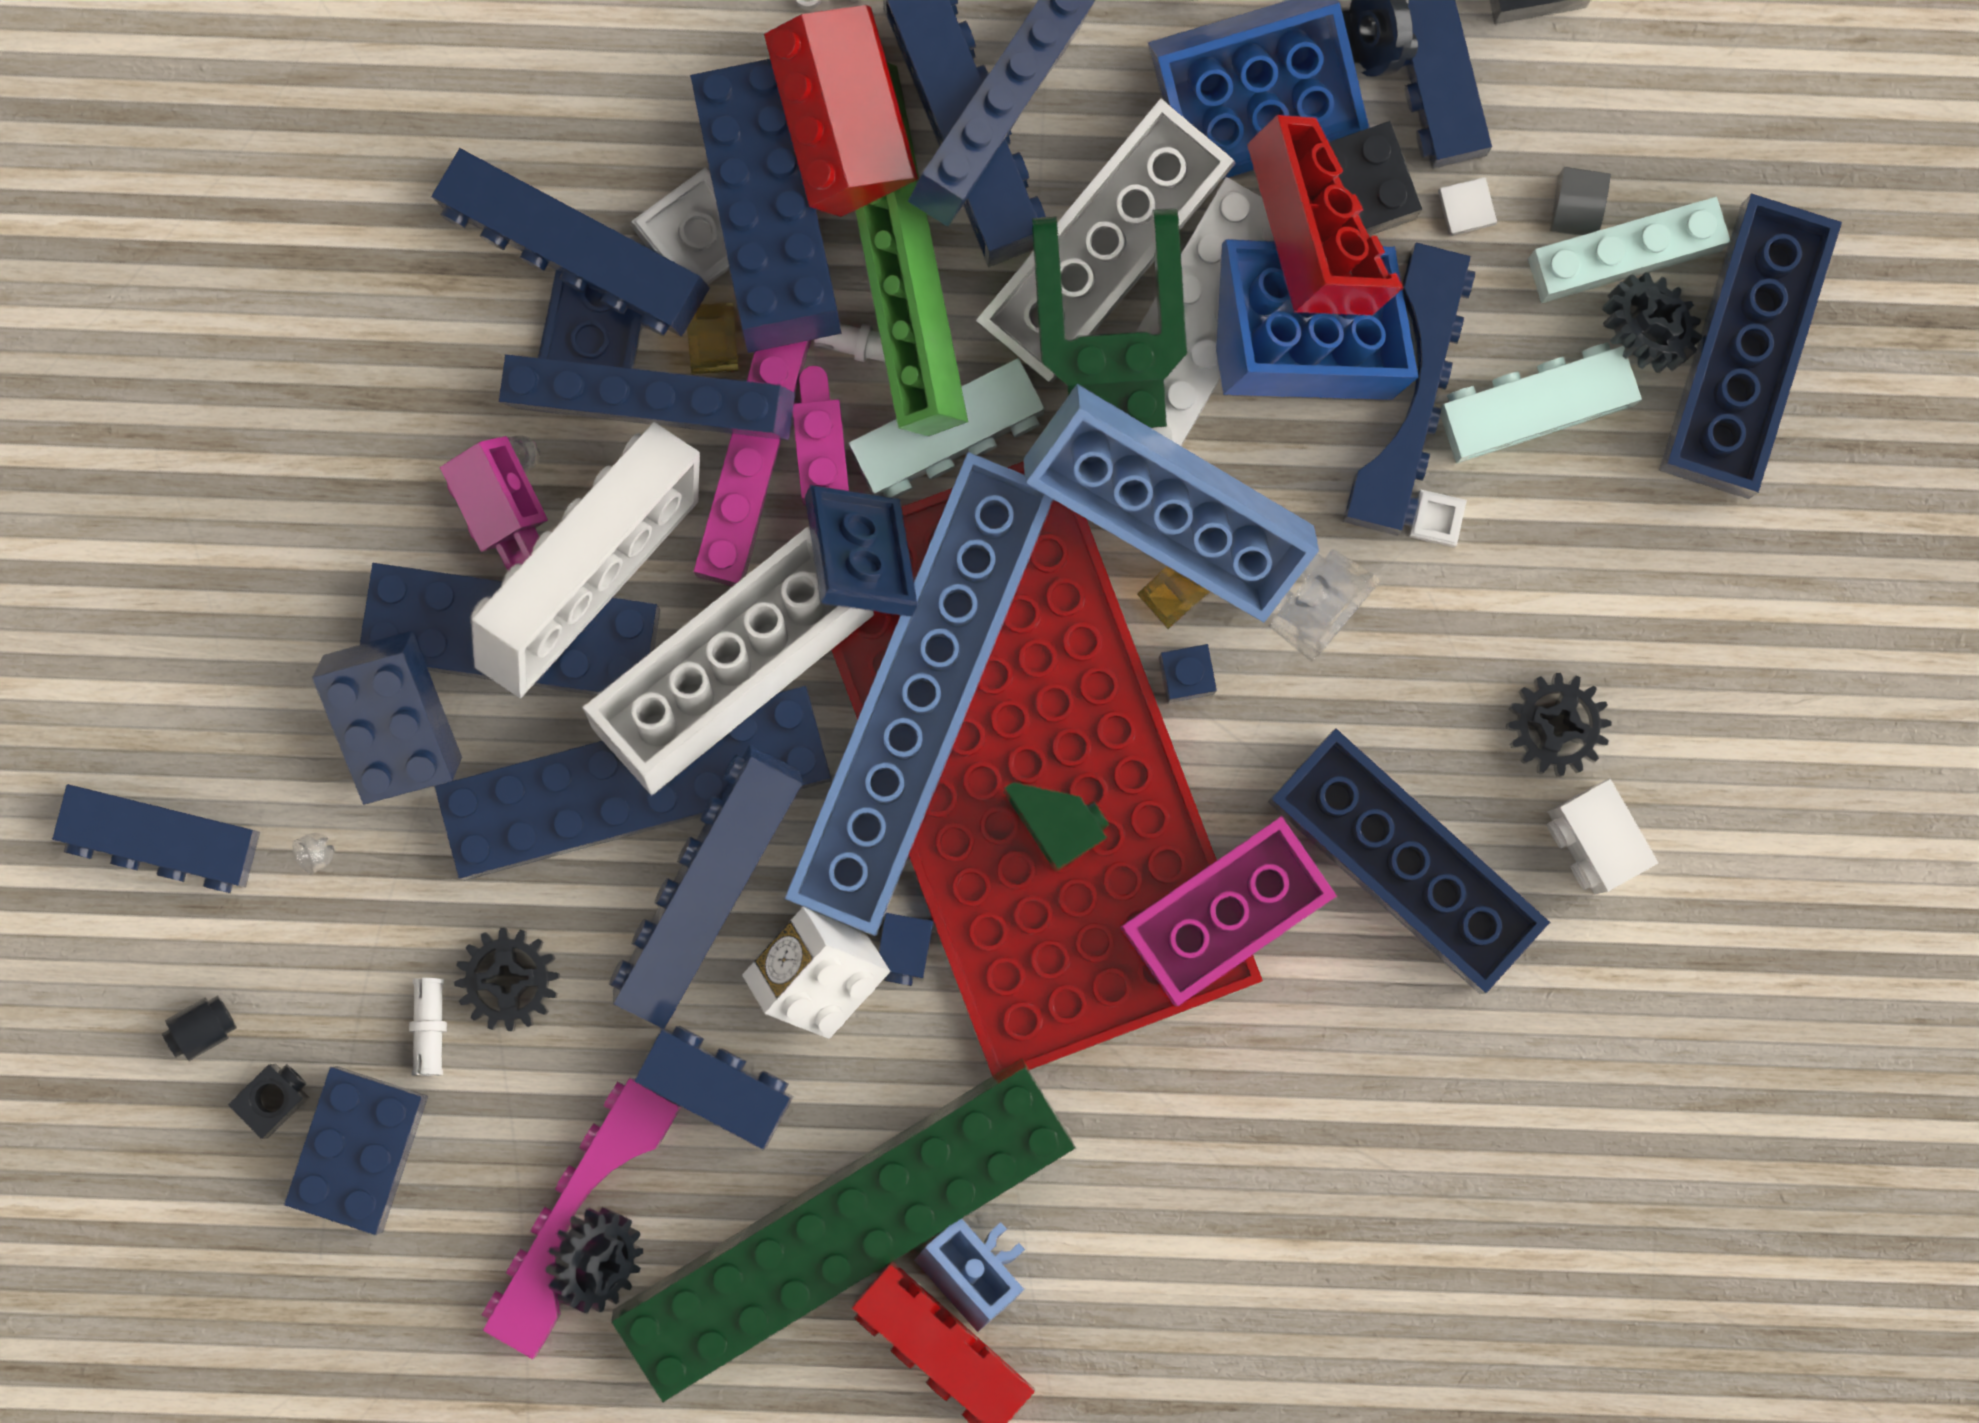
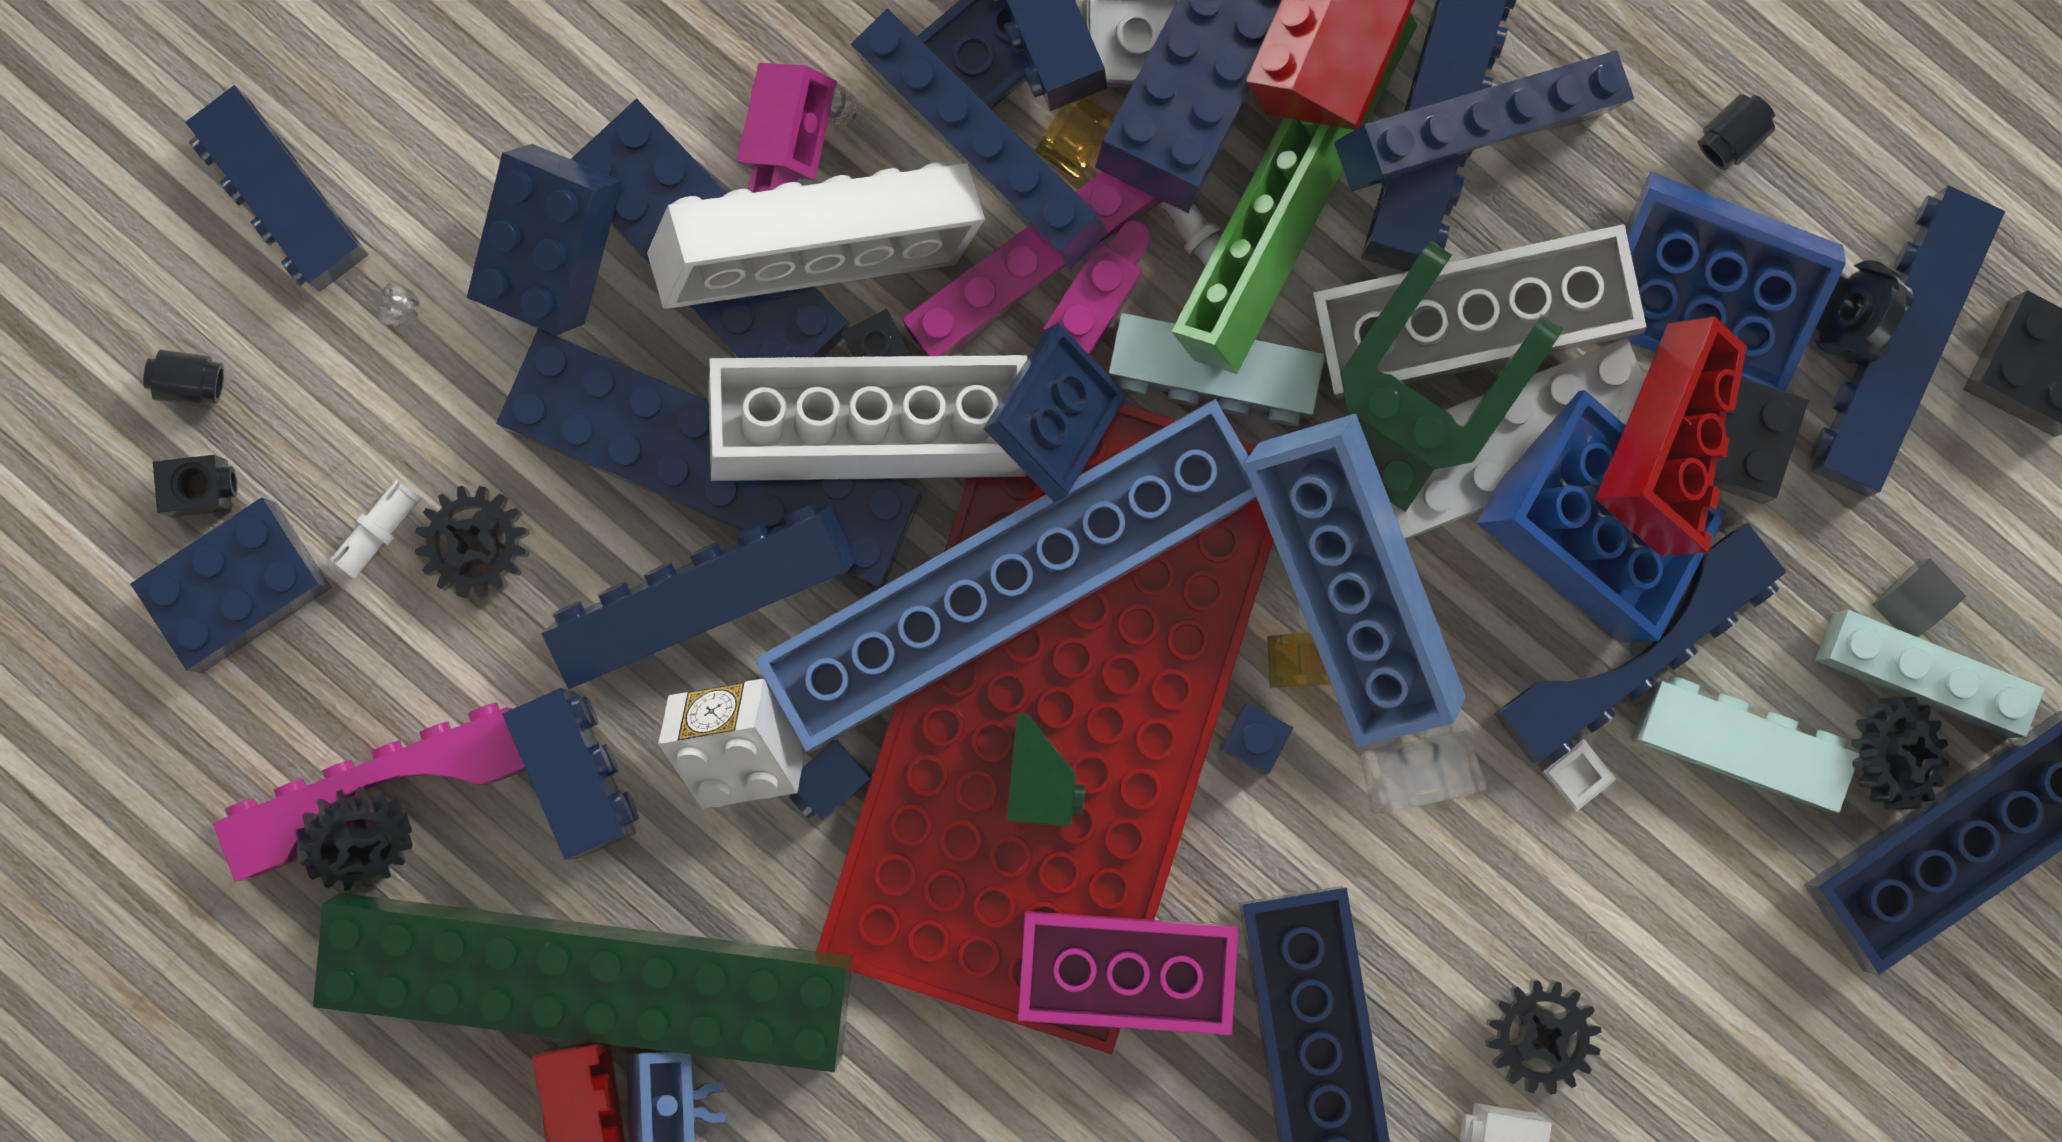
camera: 50 degrees right, 0 degrees up
(685, 601) = (875, 338): none -> black brick
(1467, 206) = (1816, 527): white tile -> none

